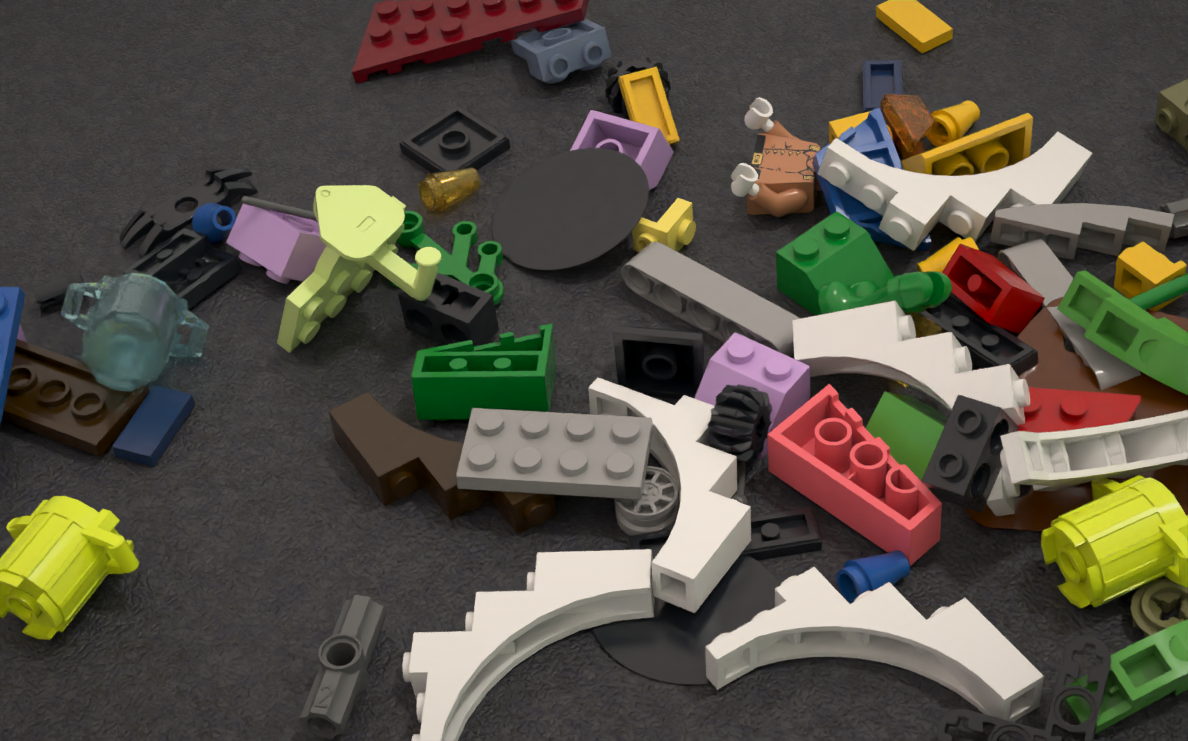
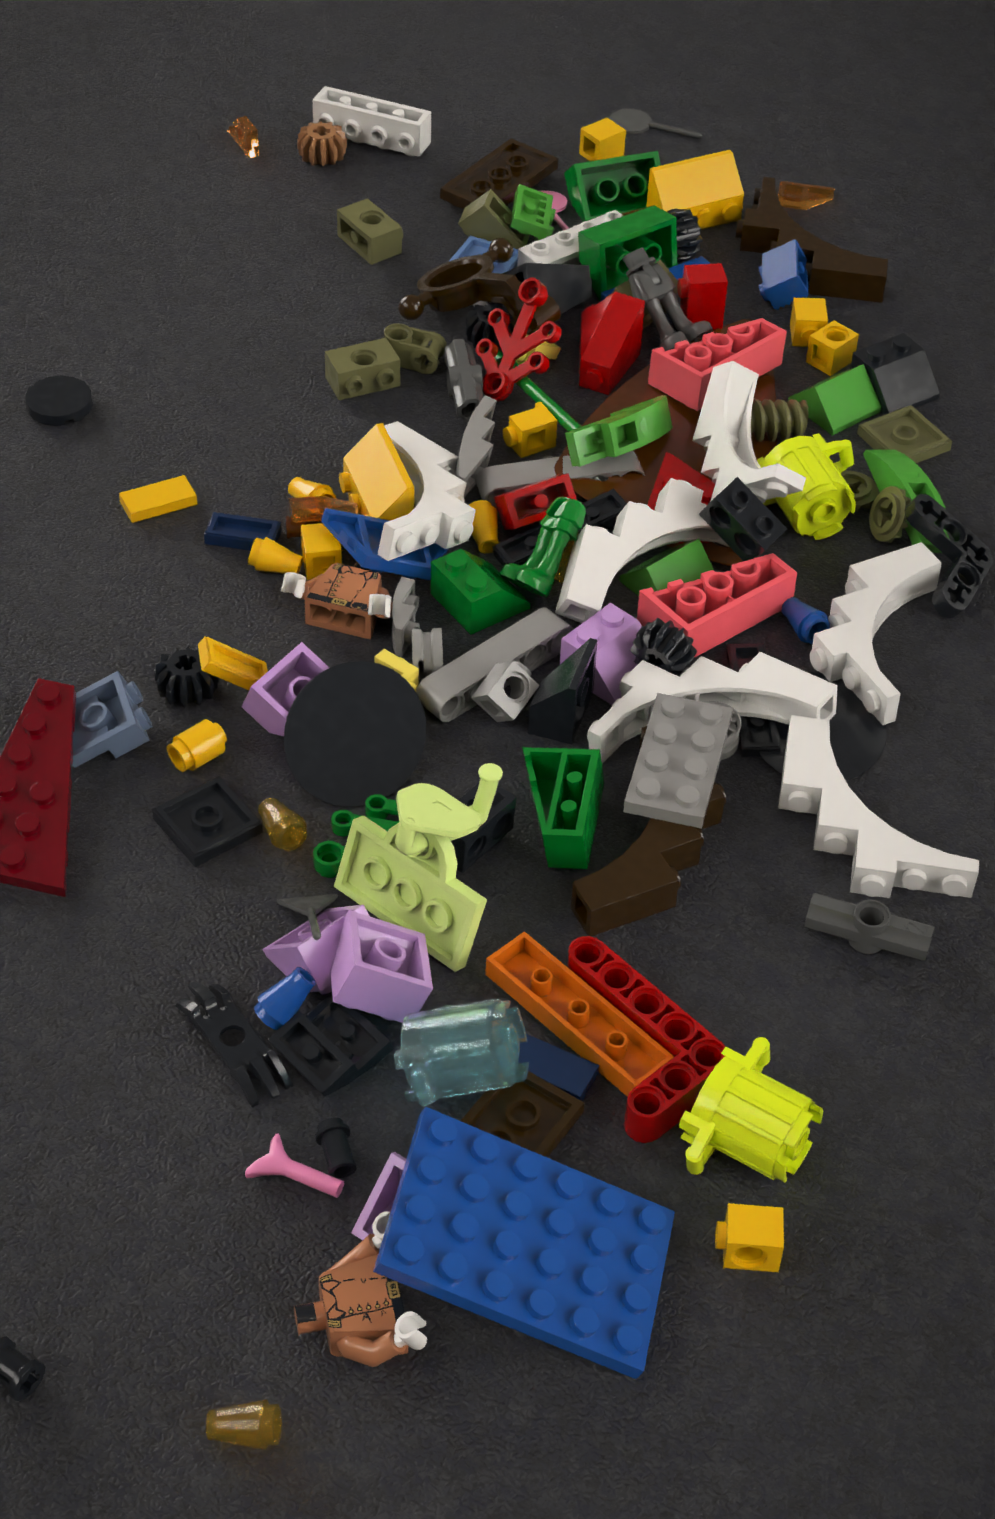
camera: 90 degrees left, 0 degrees up
(49, 261) = (279, 1163): none -> bright pink piece
(197, 490) = (695, 1050): none -> red beam
(210, 434) = (575, 1012): none -> orange piece
(244, 268) = (380, 968): none -> lavender slope
(541, 113) = (197, 745): none -> yellow brick
(638, 305) = (491, 692): none -> light grey brick
(706, 240) = (427, 651): none -> light grey wheel
(759, 218) = (403, 615): none -> light grey slope
(838, 103) = (272, 557): none -> yellow cone
(1115, 638) = (882, 524): none -> olive gear

